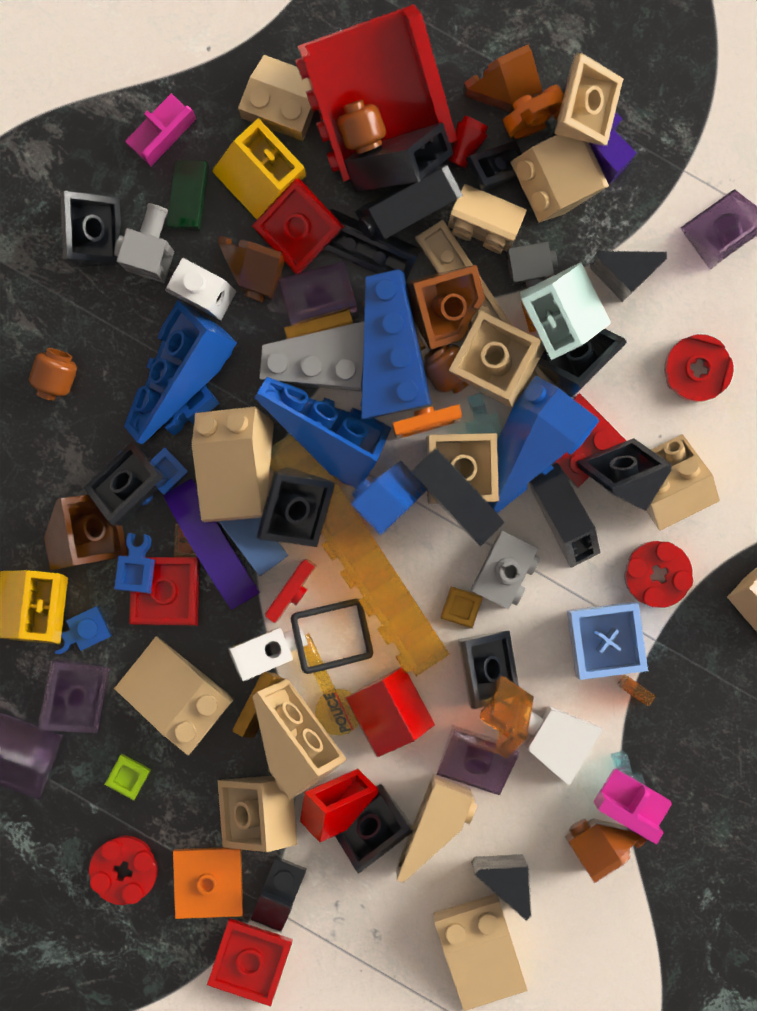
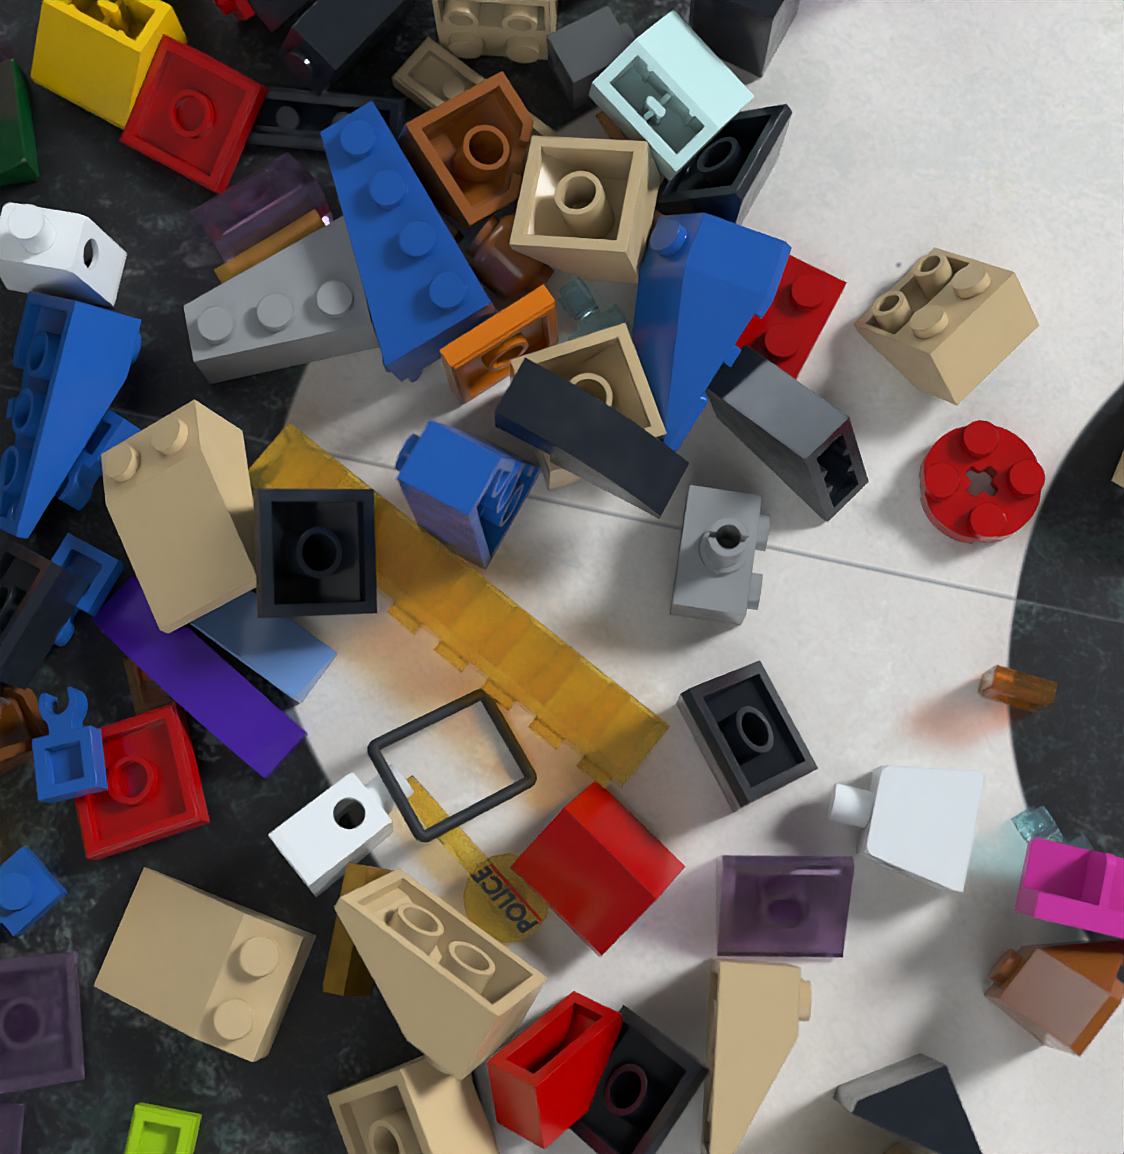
camera: 15 degrees left, 10 degrees down
(253, 267) = (137, 190): reddish brown slope -> none
(292, 591) = (354, 701): red plate -> none
(334, 437) = (338, 420): blue wedge -> none
(461, 607) = (664, 646): pearl gold tile -> none
(509, 714) = (811, 798): clear orange panel -> none
(607, 640) = (935, 614): light blue brick -> none
(628, 472) = (871, 321): black slope -> none
(714, 357) = (918, 166): red plate -> none

